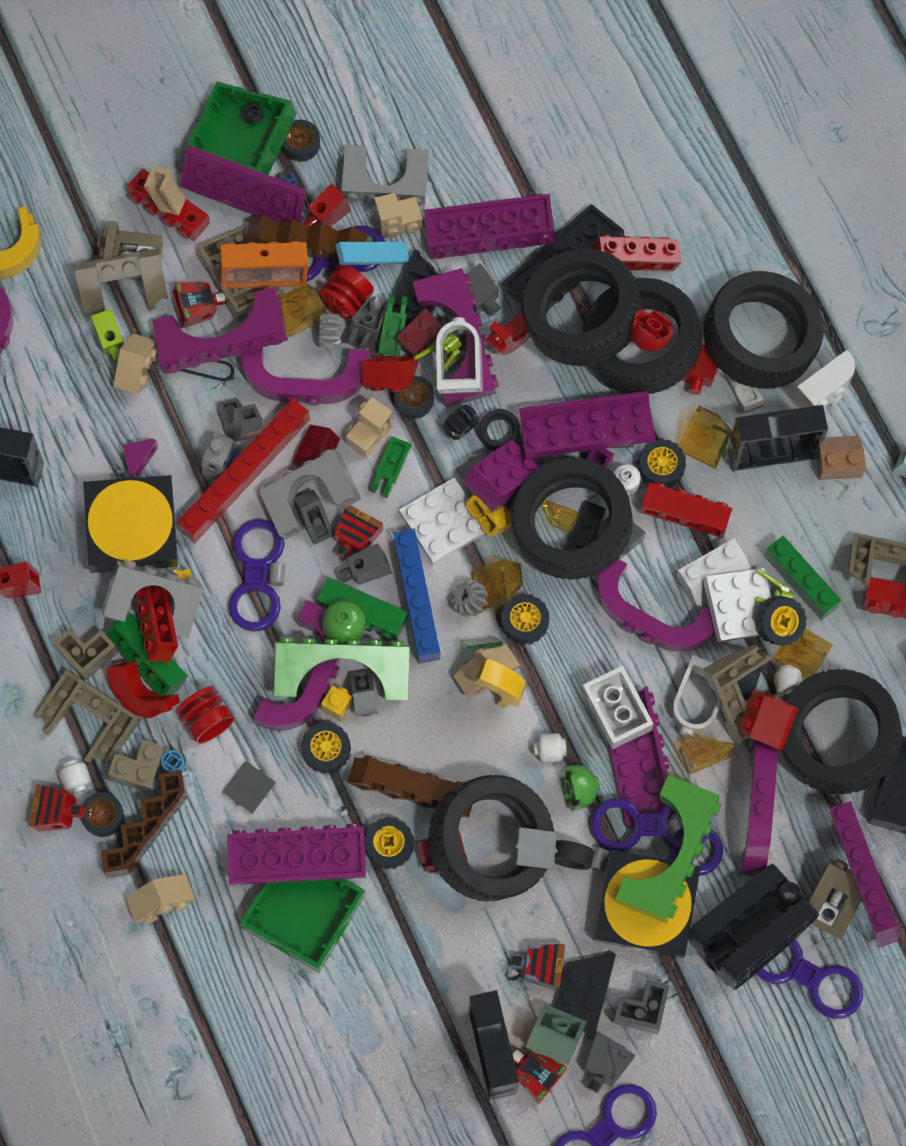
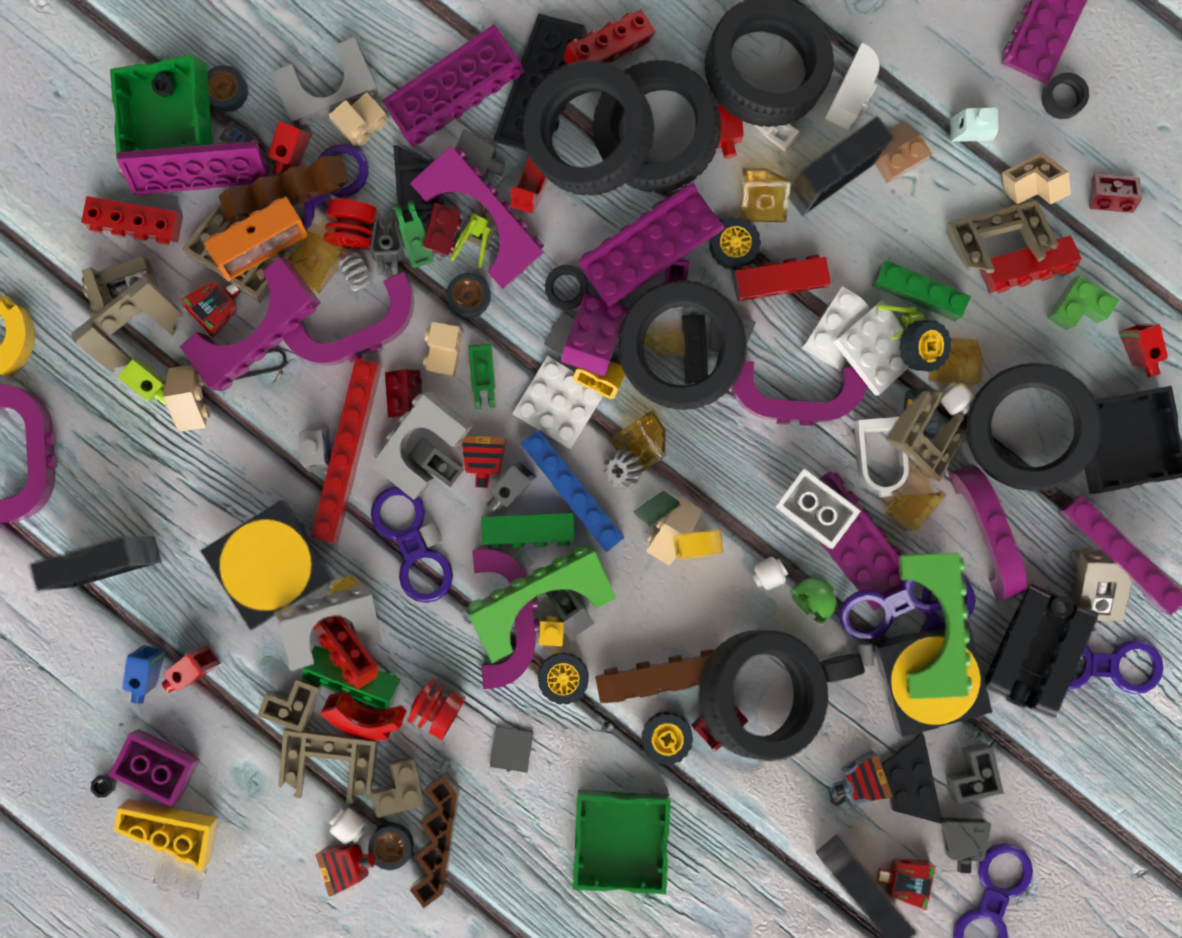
camera: 25 degrees left, 15 degrees up
(138, 455) = (239, 487): magenta slope -> none
(159, 898) = (487, 901): tan brick -> none
(164, 190) = (118, 213): tan window -> none
(174, 765) = (434, 763): dark azure wheel -> none
(239, 420) = (318, 407): dark grey arch -> none
(296, 855) = (591, 802): magenta bracket -> none
(343, 621) = (519, 556): bright green cylinder -> none
(372, 253) = (355, 172): medium azure tile -> none
(388, 372) = (433, 284): red slope -> none
(461, 422) = (527, 299): black gear -> none
(468, 385) = (506, 266): white window -> none
(525, 619) = (684, 461): black wheel -> none
(535, 848) = (811, 686): piece -> none
(556, 1034) = (911, 843): sand green brick -> none
(629, 477) = (716, 272): white head -> none
(650, 330) = (670, 121): red cylinder -> none
(767, 719) = (963, 451): red slope -> none

